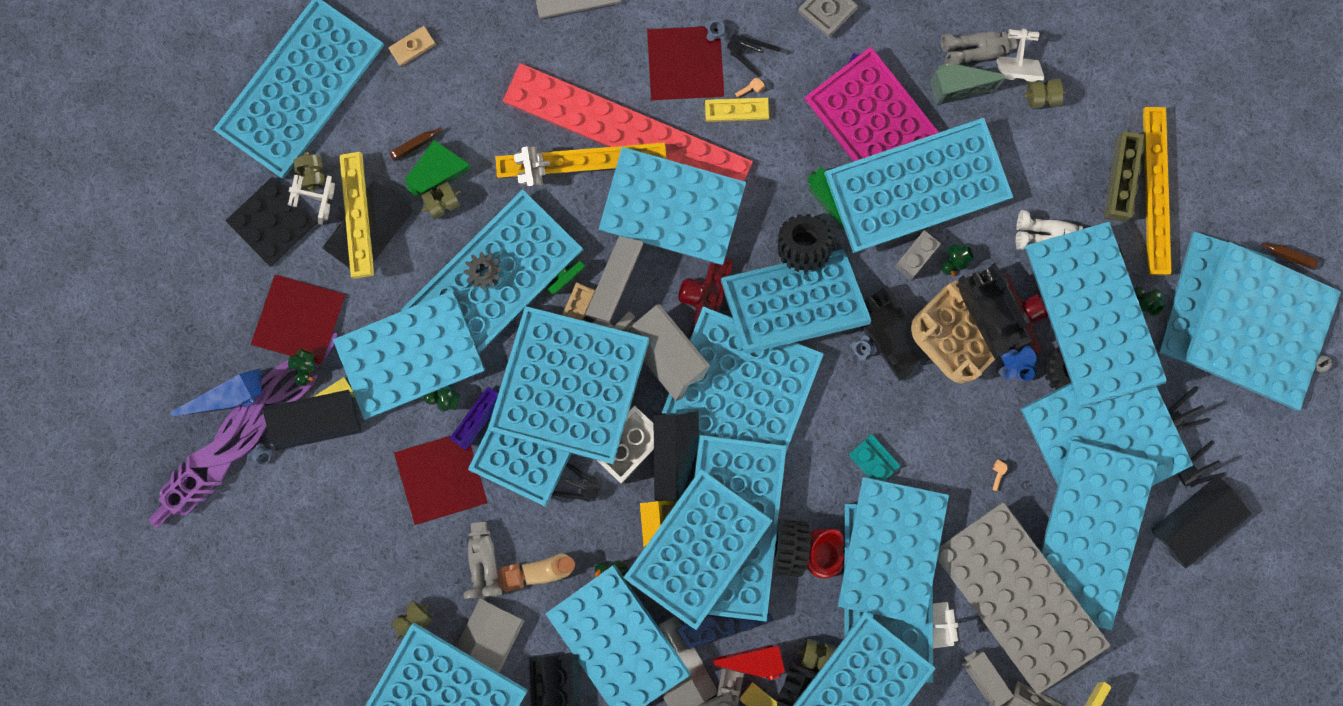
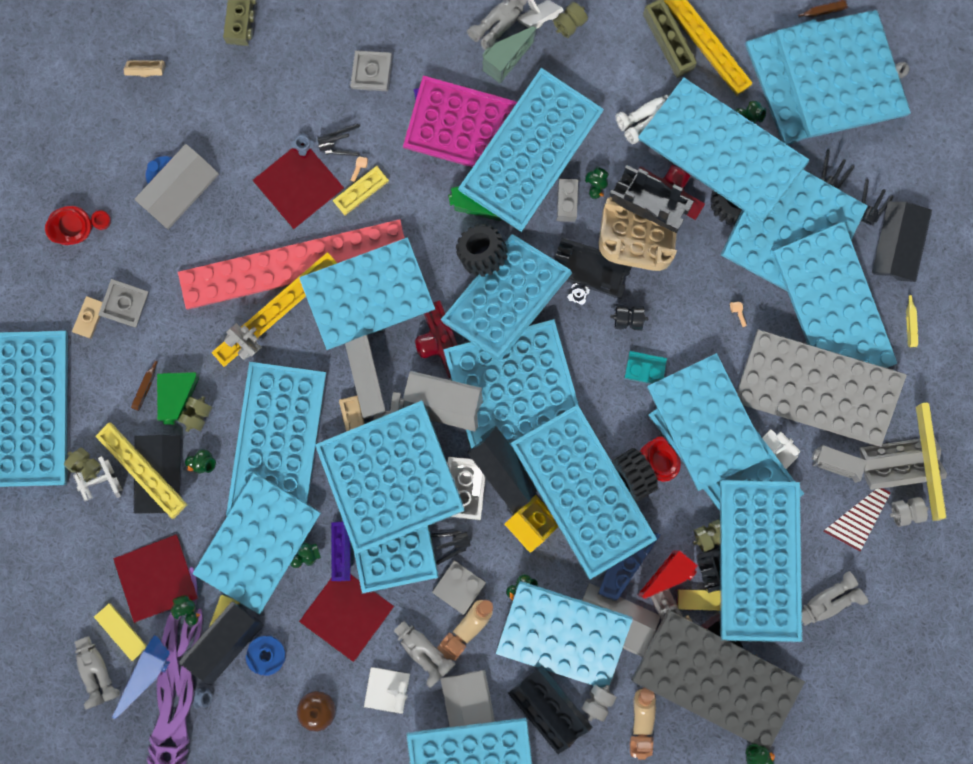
camera: 40 degrees left, 0 degrees up
(186, 350) = (90, 662): none -> light grey piece
(233, 343) = (120, 632): none -> light yellow tile
(270, 223) = (80, 523): black plate -> none
(349, 543) = (316, 711): none -> reddish brown cylinder
(352, 452) = (254, 654): none -> blue plate
(414, 247) = (201, 462): none -> dark green animal
(414, 614) = (403, 726): olive wheel -> none
(424, 572) = (386, 690): none -> white plate
(451, 56) = (123, 303): none -> light grey plate
(488, 277) = (273, 442): dark grey gear -> none
(557, 530) = (459, 587): none -> light grey plate
(565, 276) = (327, 402): green plate -> none
(698, 549) = (571, 525): medium azure plate -> none
(891, 401) = (634, 318): none -> black wheel
(1016, 361) = (693, 222): blue plate -> none
(1152, 604) = (912, 328): none -> light yellow piece

